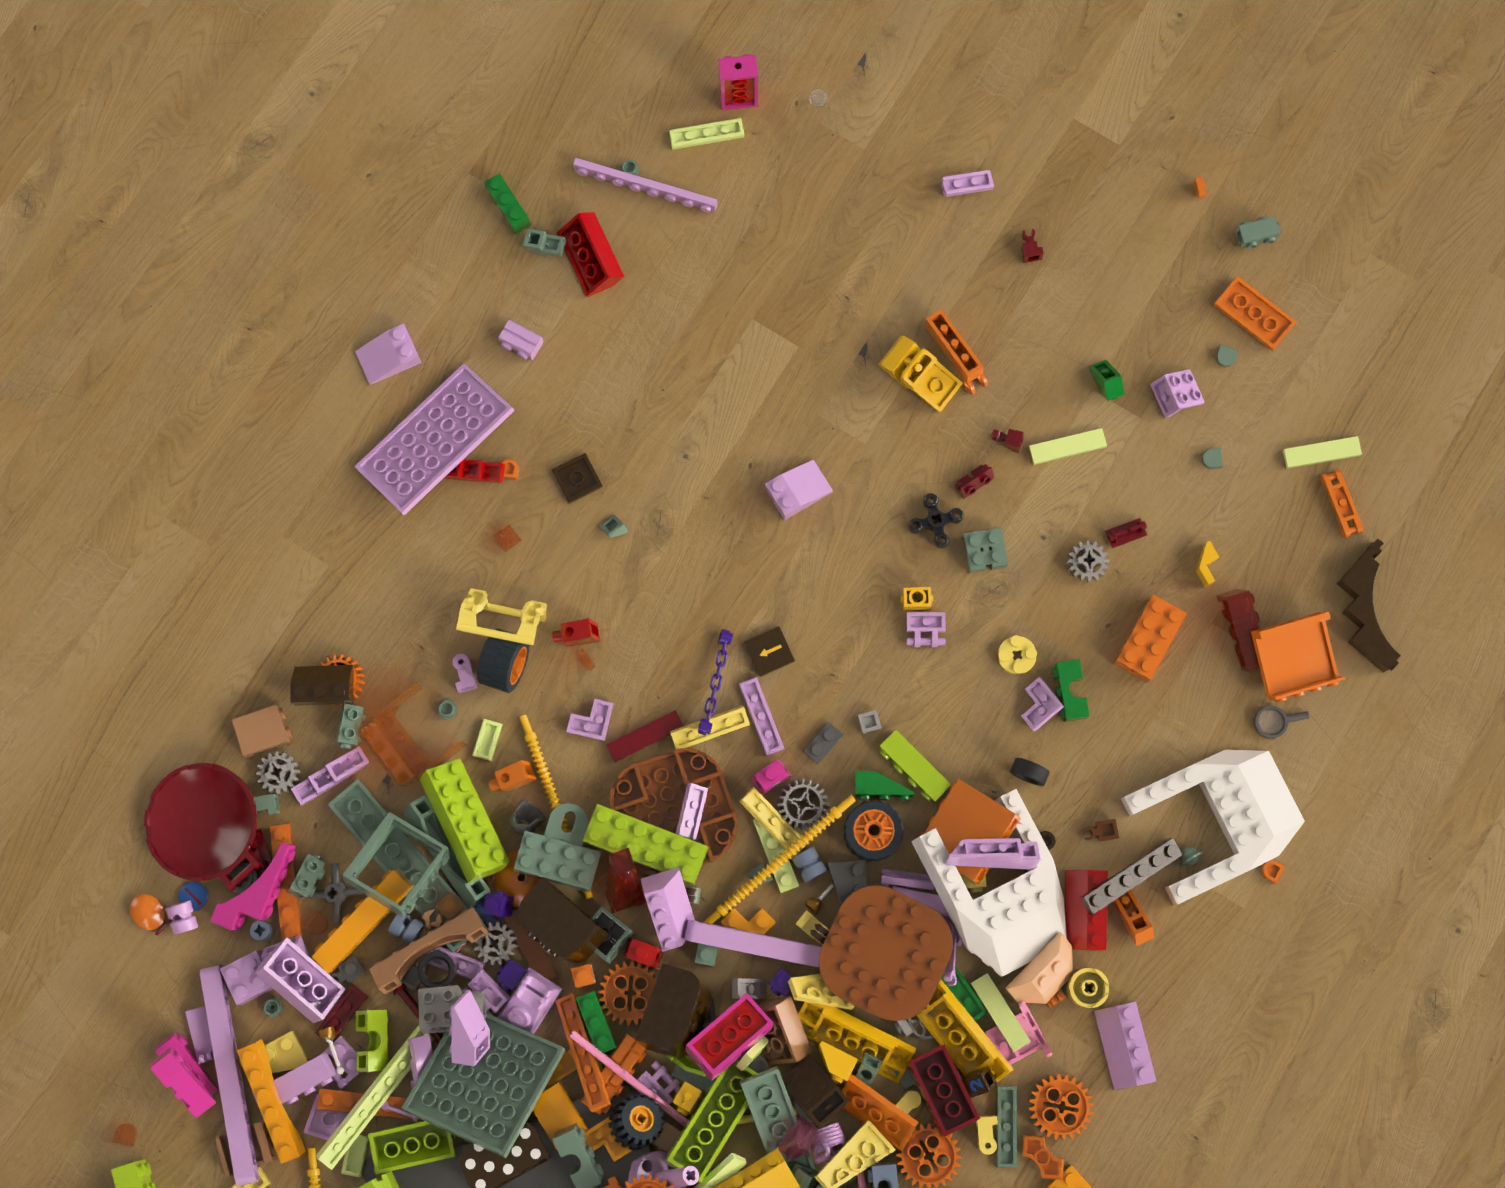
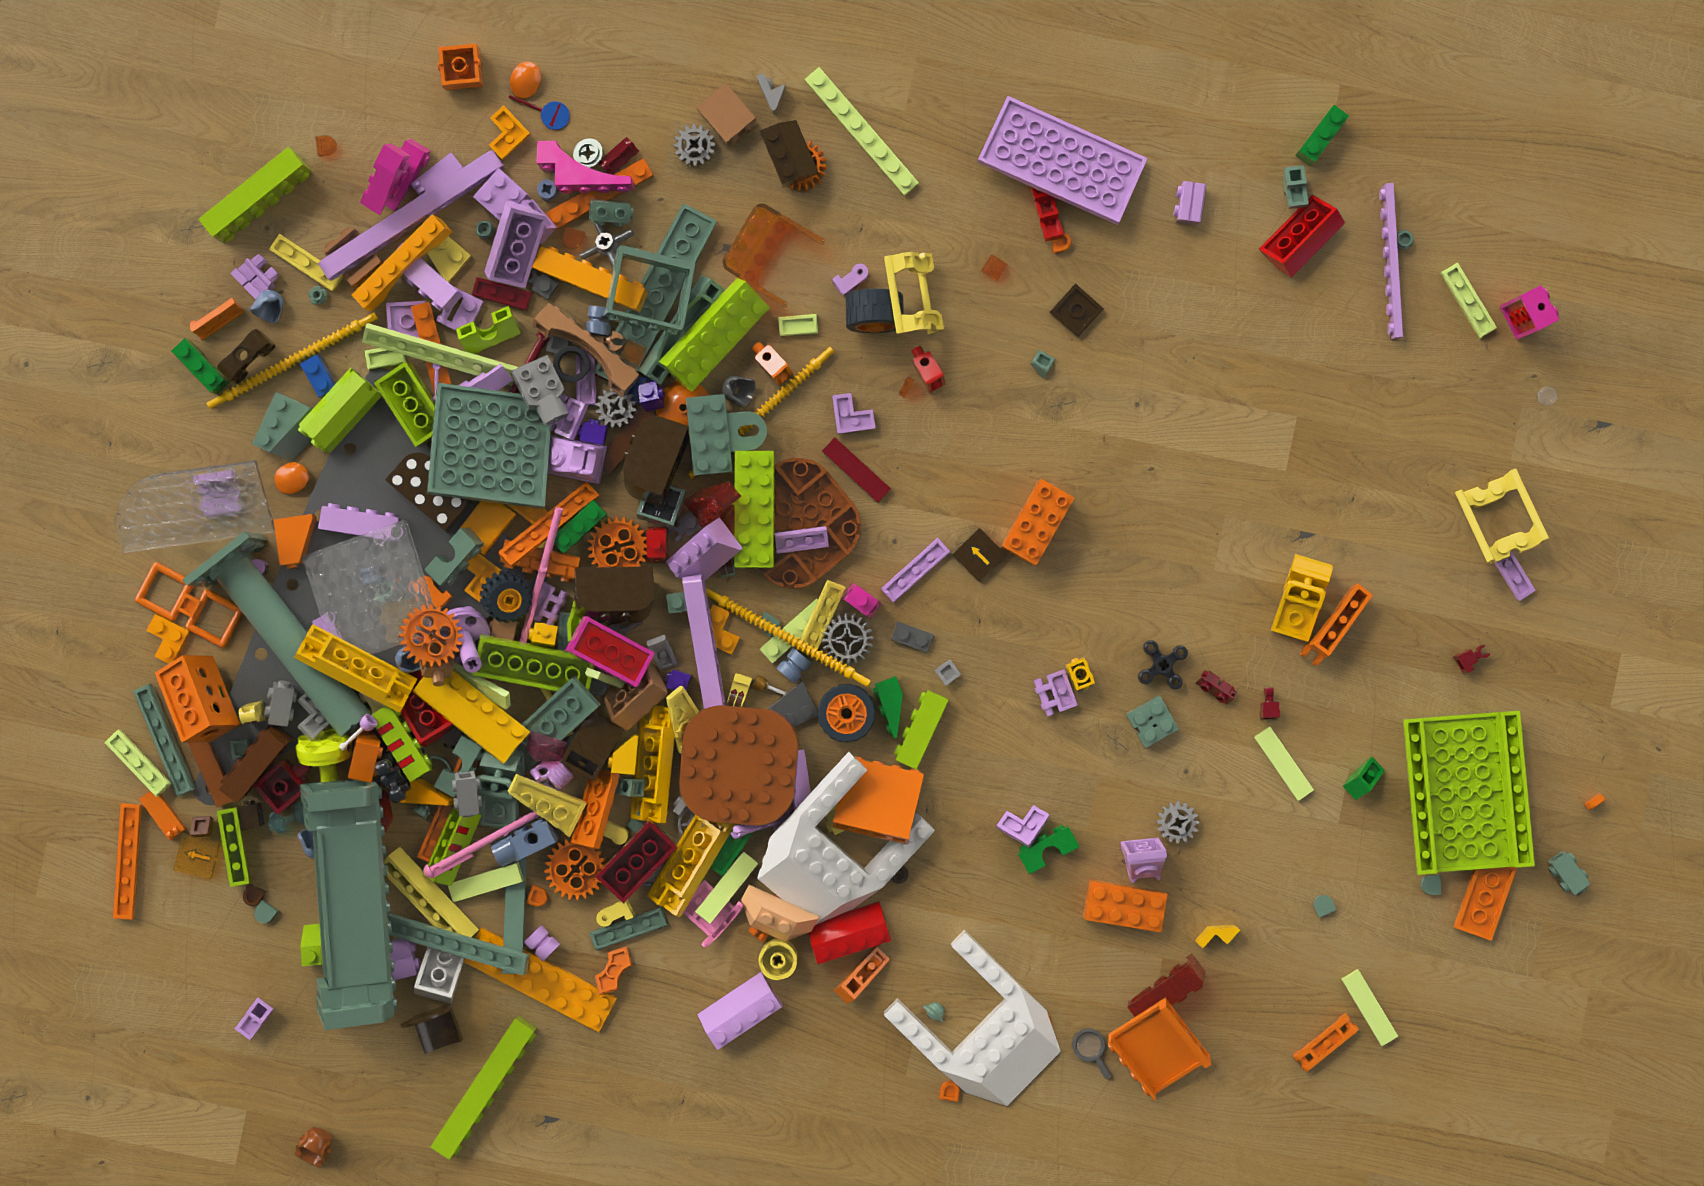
camera: 70 degrees right, 10 degrees up
(107, 969) = (460, 67): none -> orange brick
(181, 917) = (531, 113): lavender wheel -> none
(190, 943) = (512, 133): none -> light orange plate
(202, 824) = (621, 96): dark red dish -> none
(263, 682) = (773, 96): none -> light grey slope
(267, 803) = (656, 136): sand green leg -> none
(328, 1035) = (478, 289): hinge -> none
(330, 612) = (861, 131): none -> yellowish green plate
(330, 776) = (710, 194): lavender slope -> none
(349, 722) = (761, 193): sand green brick -> none
(388, 354) = (1128, 82): lavender slope -> none
(447, 709) = (811, 276): sand green plate -> none
(468, 1031) = (525, 415): lavender slope -> none
(583, 976) = (617, 498): orange brick -> none
(635, 916) = (687, 525): none -> dark grey plate
(722, 724) = (886, 526): light yellow plate -> none
(724, 639) = (884, 522): dark purple piece -> none
(760, 584) = (1037, 522): none -> orange piece
(798, 489) = (1145, 523): lavender slope -> none
(886, 170) = (1495, 492): none -> light yellow piece
(906, 879) = (814, 758): lavender hinge -> none
(979, 1081) = (656, 890): dark brown brick -> none
(995, 854) = (865, 833): lavender wedge -> none
(1017, 644) = (1057, 777): light yellow plate -> none
(1029, 771) = (956, 837): black tyre -> none
(1064, 1089) = (646, 973): orange gear -> none
(1104, 830) = (928, 925): reddish brown plate -> none
(1111, 603) = (1144, 858): none -> lavender piece
(1126, 532) = (1219, 848): dark red hinge -> none
(1131, 876) = (894, 964): plate -> none
(1153, 291) = (1468, 792): none -> lime slope
(1176, 392) = (1376, 849): lavender bracket -> none
(1359, 585) = (1251, 1084): dark brown arch -> none

